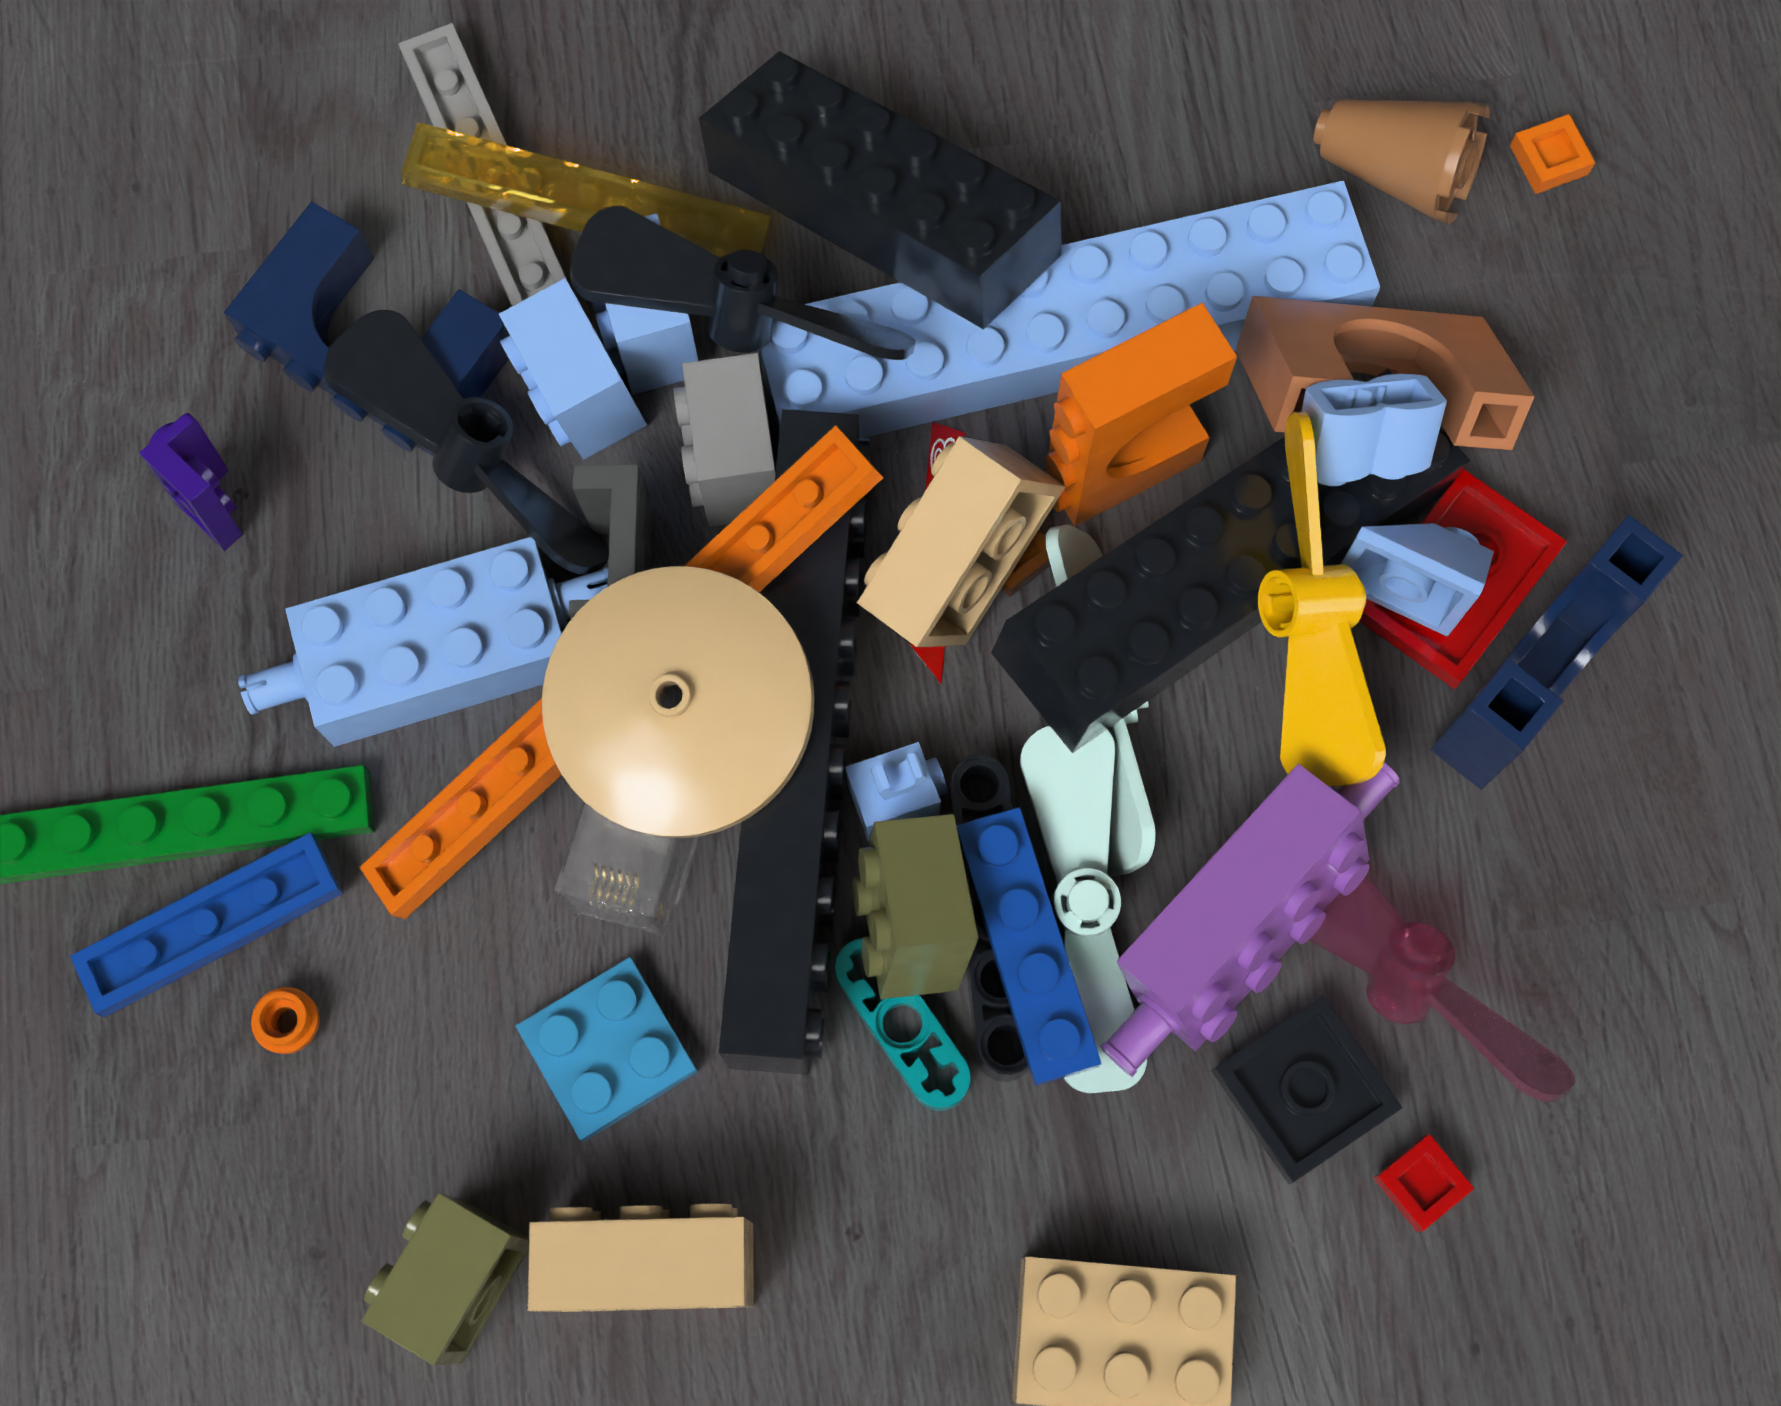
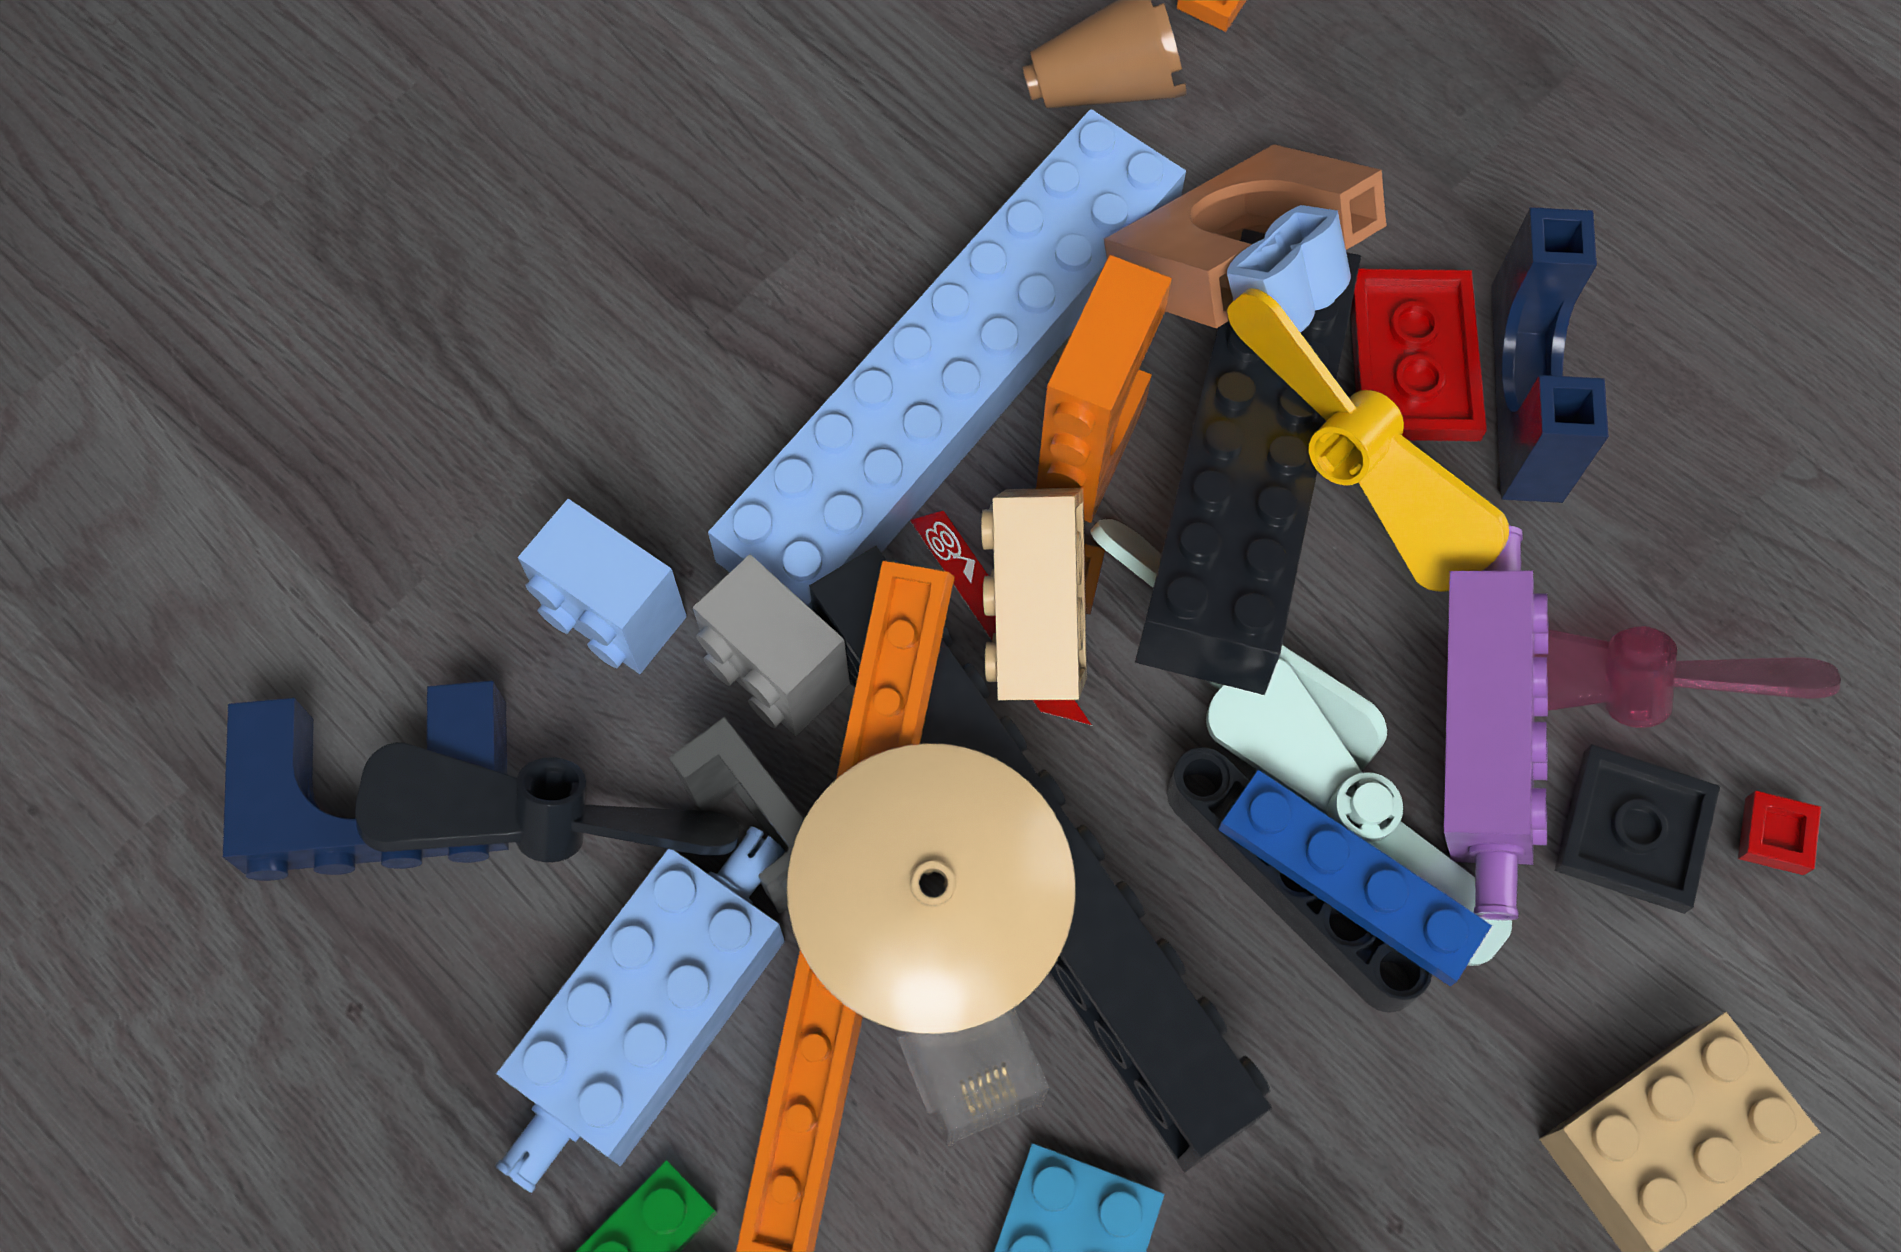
camera: 40 degrees left, 5 degrees down
(190, 474) = (310, 1026): dark purple bracket -> none
(458, 104) = (374, 581): light grey plate -> none
(567, 192) = (467, 538): clear yellow plate -> none
(569, 371) = (586, 683): light blue brick -> none
(646, 266) = (593, 548): black piece -> none
(883, 188) = (732, 354): black brick -> none
(896, 786) = (1138, 833): light blue brick -> none
(915, 907) = (1244, 913): olive brick -> none
(917, 1074) = (1349, 1018): teal beam -> none
(1421, 571) = (1411, 358): light blue slope -> none

